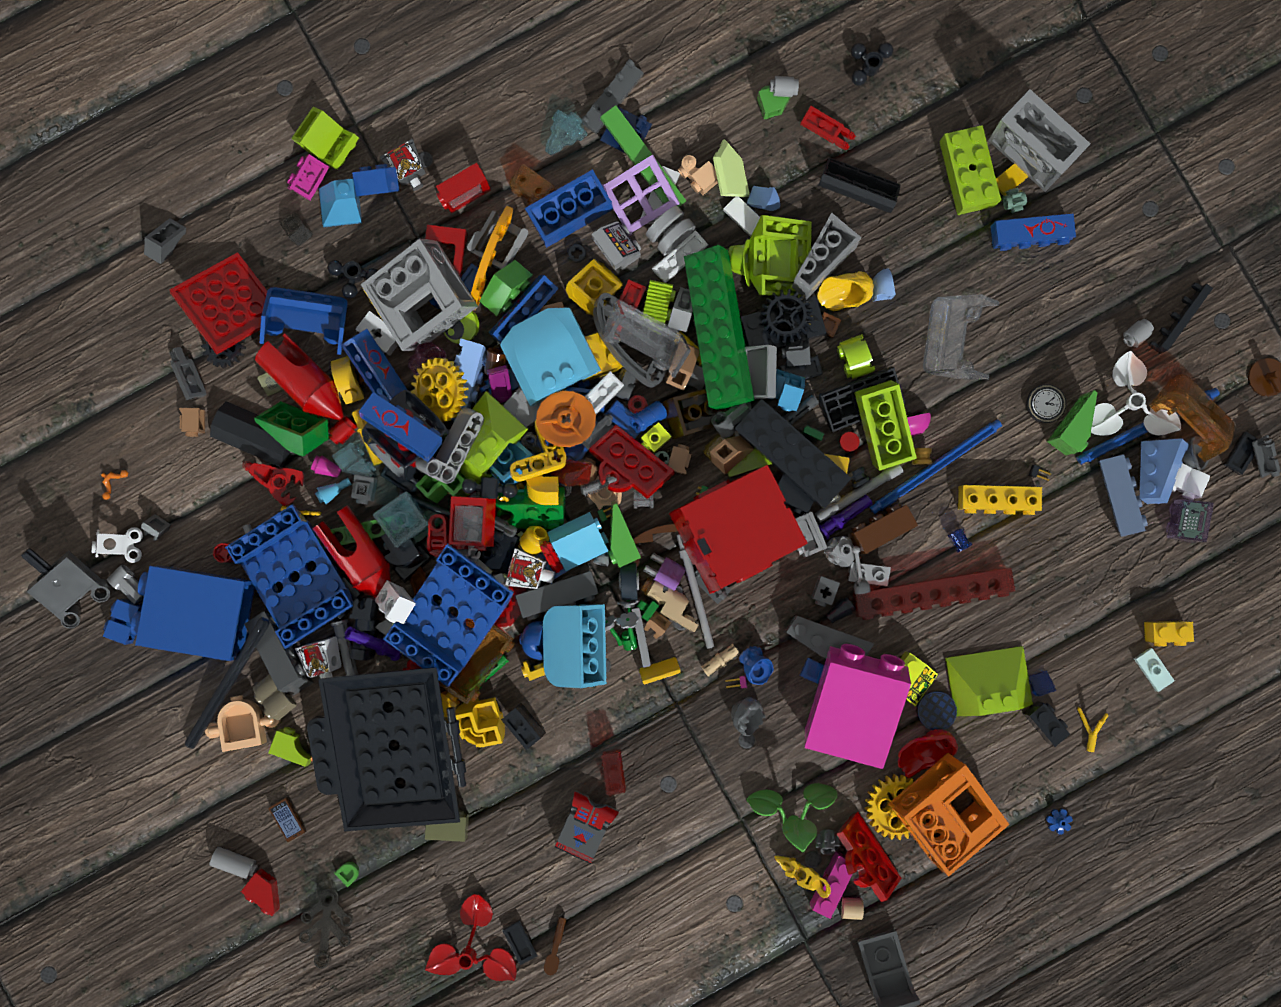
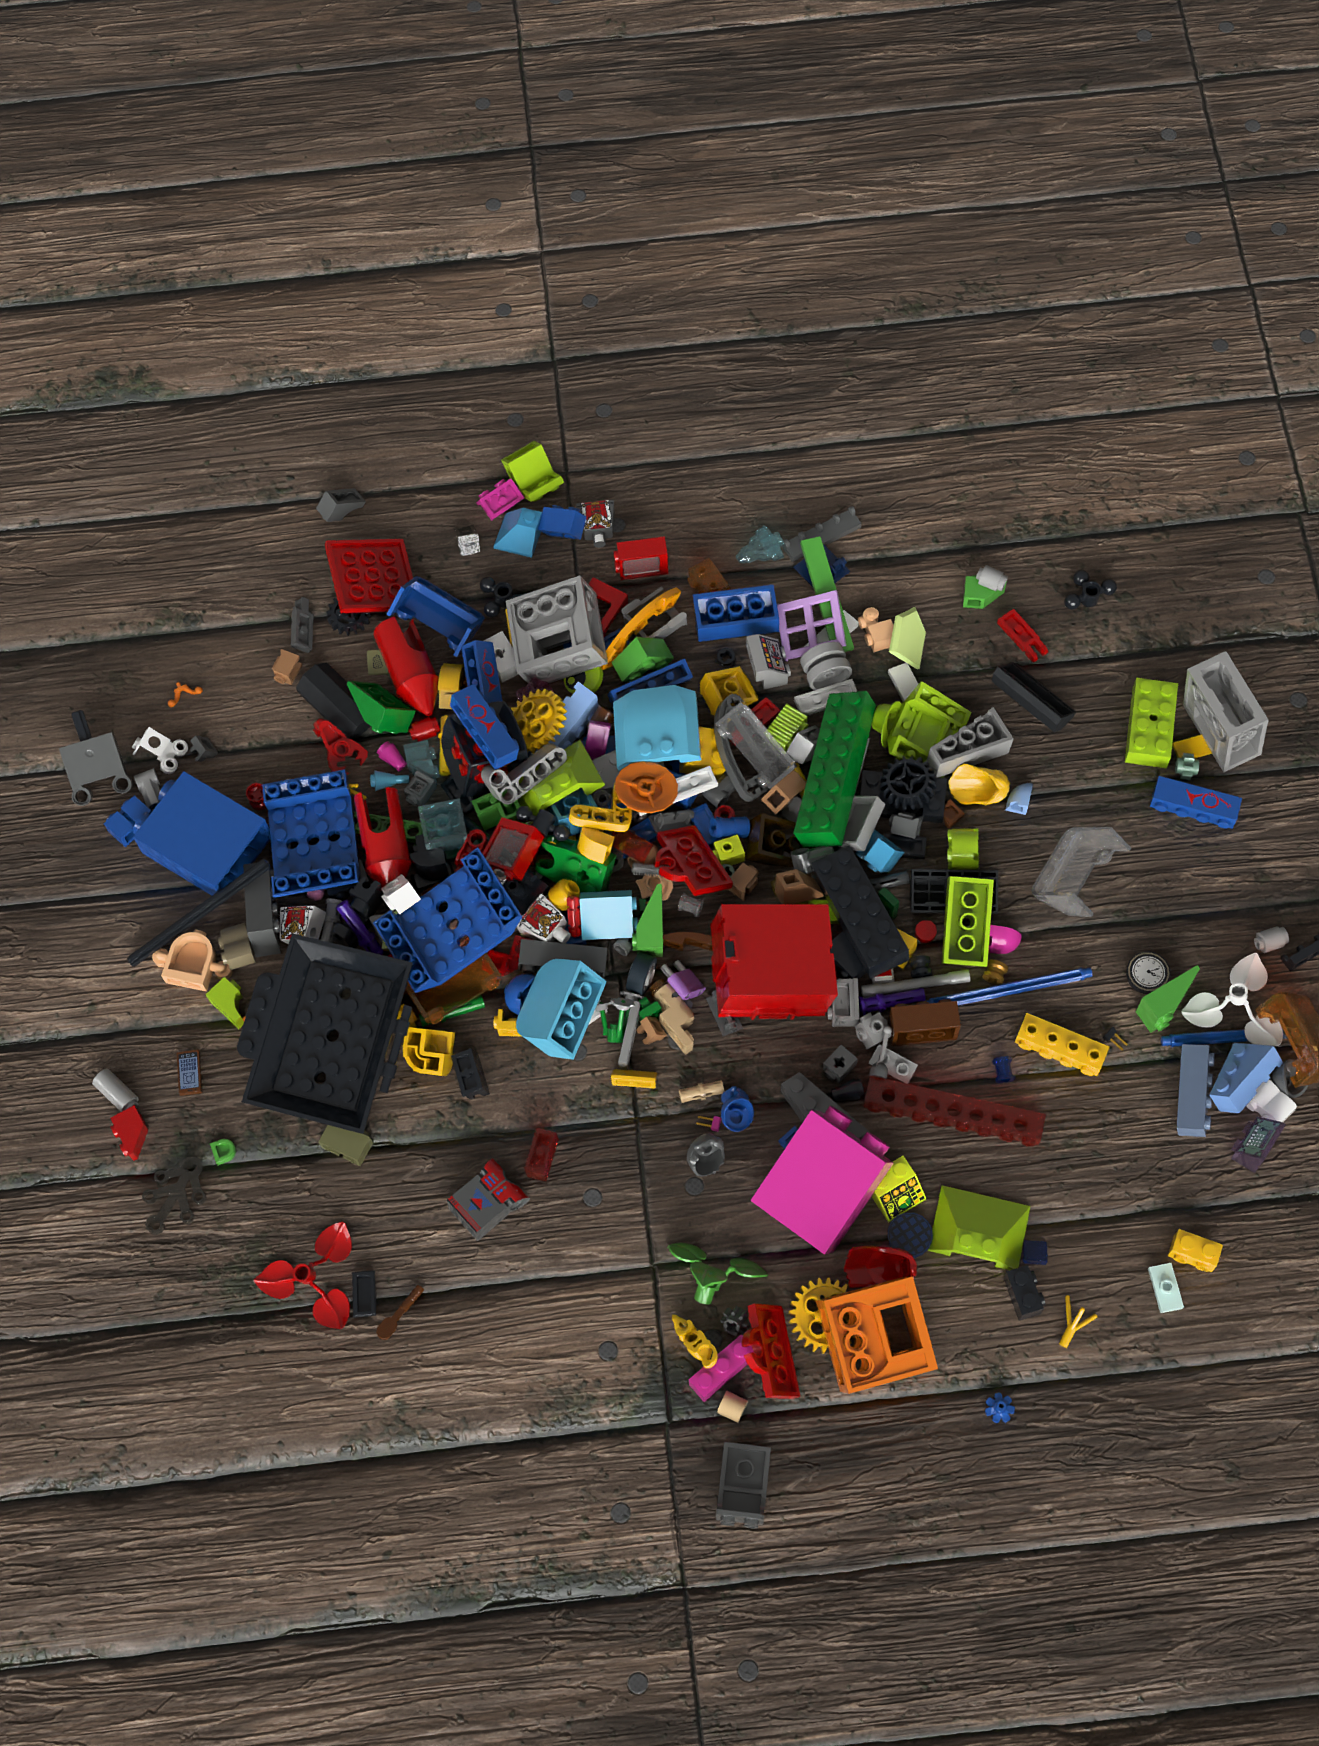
camera: 25 degrees right, 20 degrees down
(504, 526) = (543, 874): dark grey axle -> none
(696, 594) = (704, 1017): light grey bar -> none
(764, 198) = (933, 674): medium blue tile -> none

